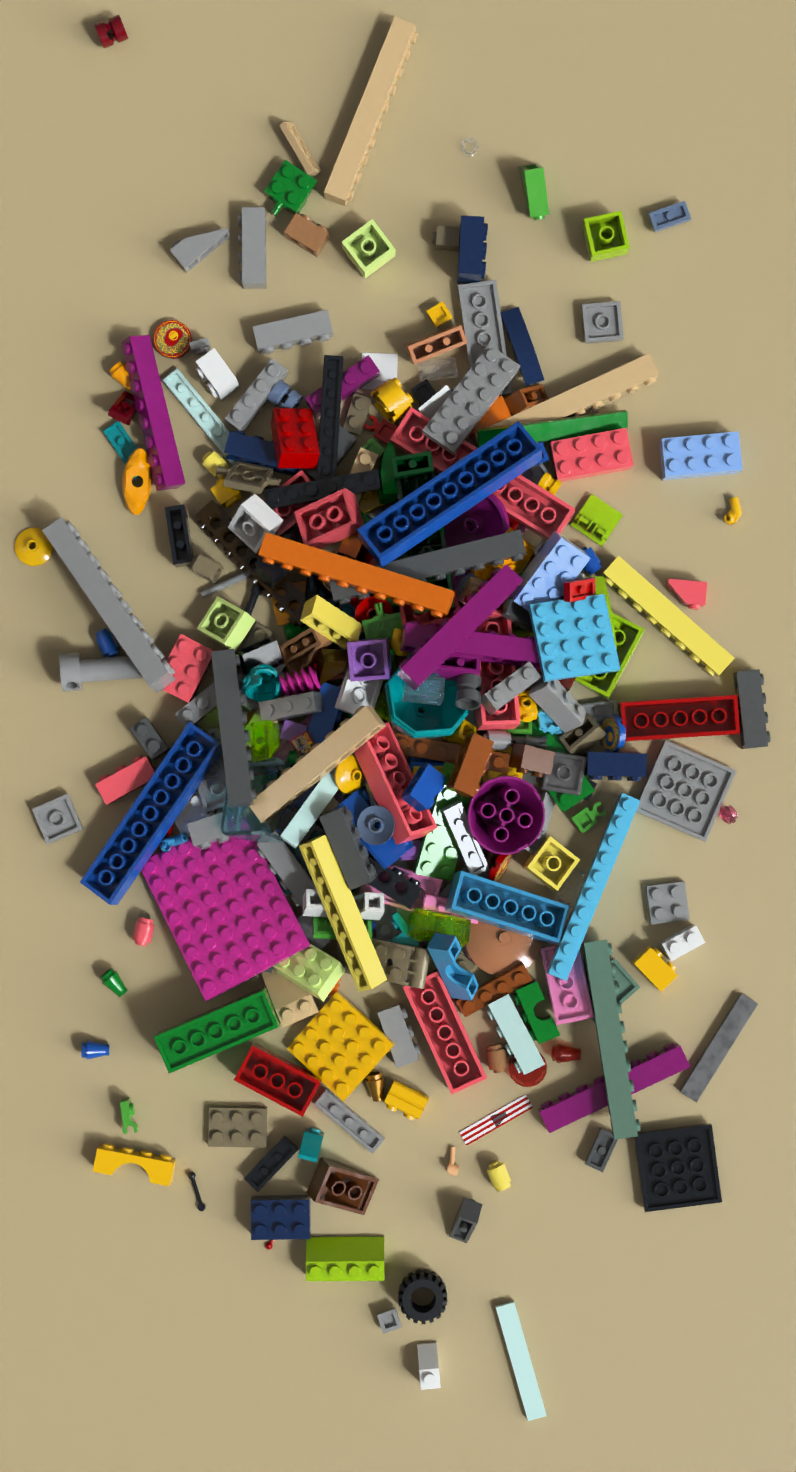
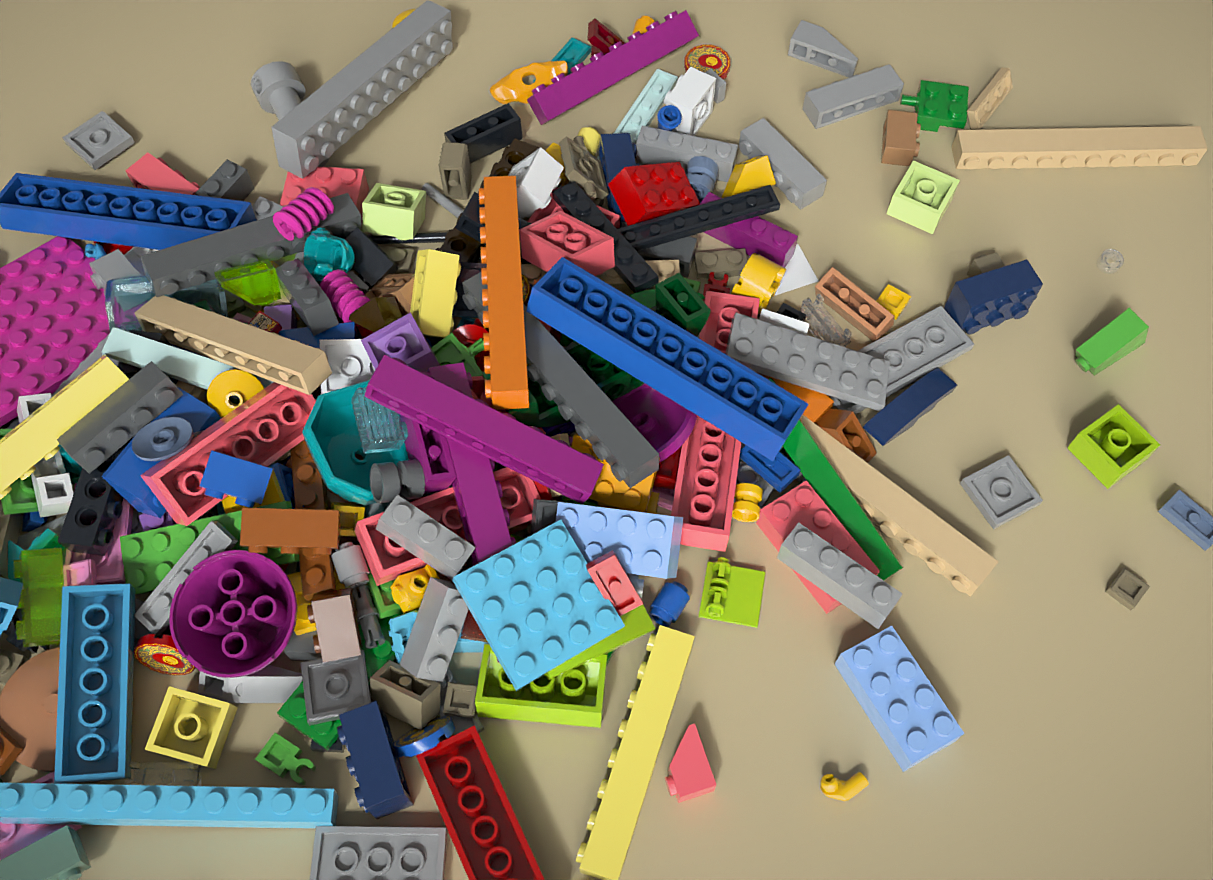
camera: 70 degrees right, 25 degrees down
(229, 686) = (303, 213): none -> dark pink piece
(231, 394) = (669, 118): none -> blue cone
(300, 363) = (749, 176): none -> yellow slope
(596, 705) = (460, 700): none -> dark tan tile
(625, 456) = (838, 575): none -> light grey brick
(692, 282) = (1127, 589): none -> dark tan tile

